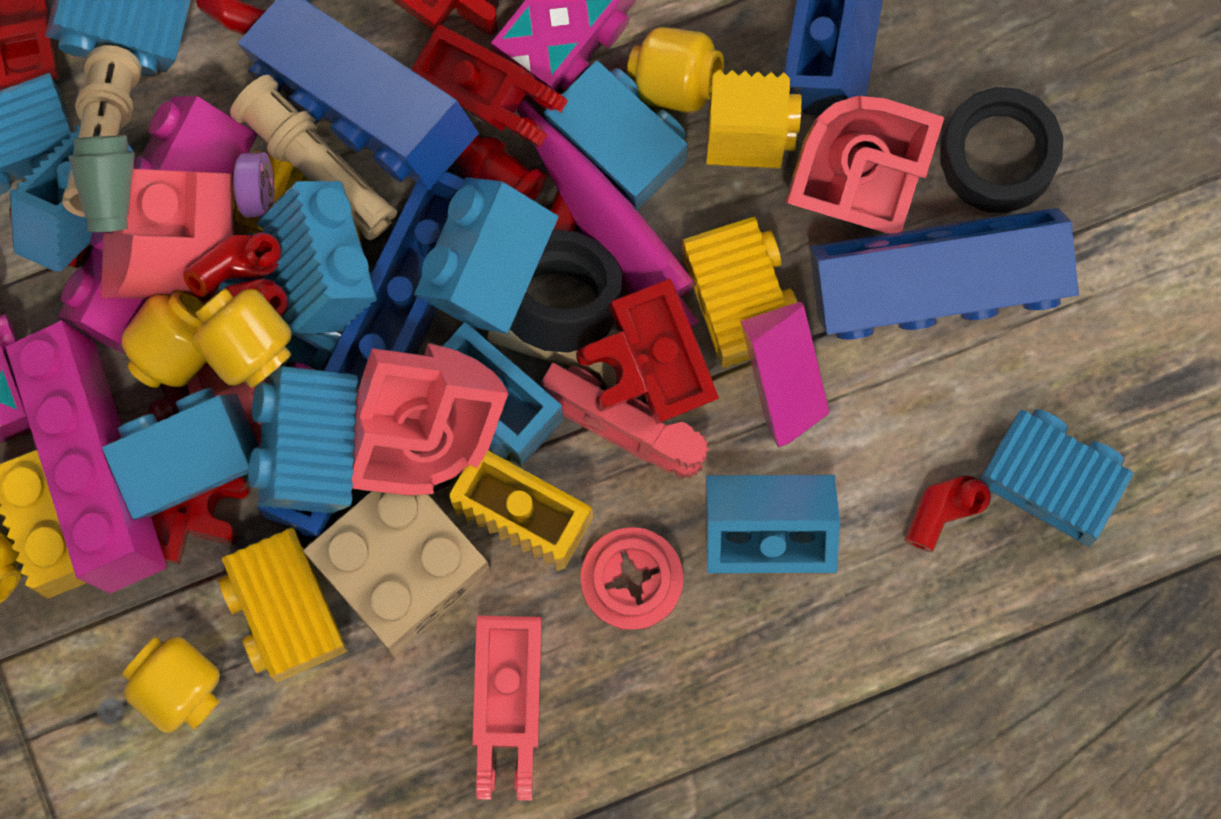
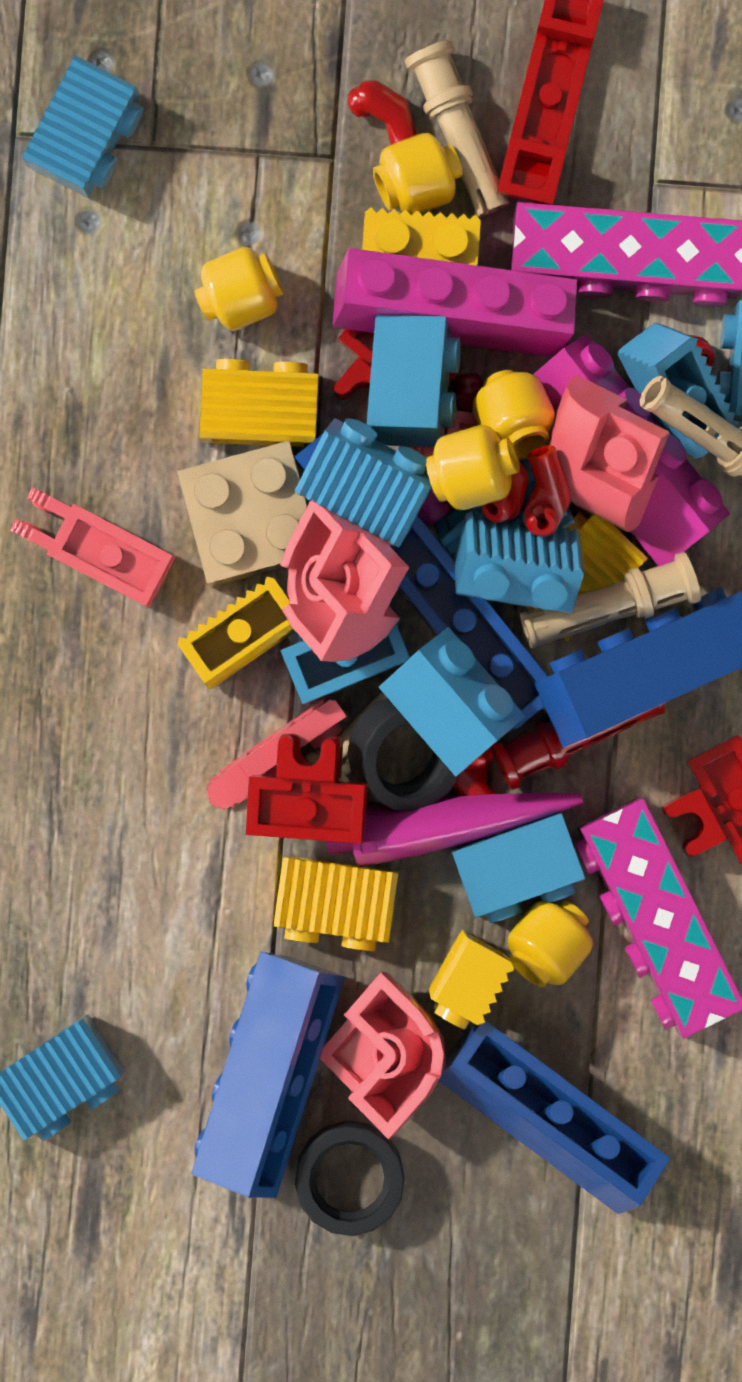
camera: 115 degrees right, 10 degrees up
(103, 180) = (657, 415): sand green cone -> none
(253, 184) = (610, 542): medium lavender tile -> none
(484, 83) = (613, 774): red hinge -> none
(647, 552) = (130, 674): coral gear -> none
(771, 524) = (133, 829): dark azure brick -> none
(785, 371) = (247, 902): dark pink slope -> none
(945, 503) = (82, 979): red arm -> none

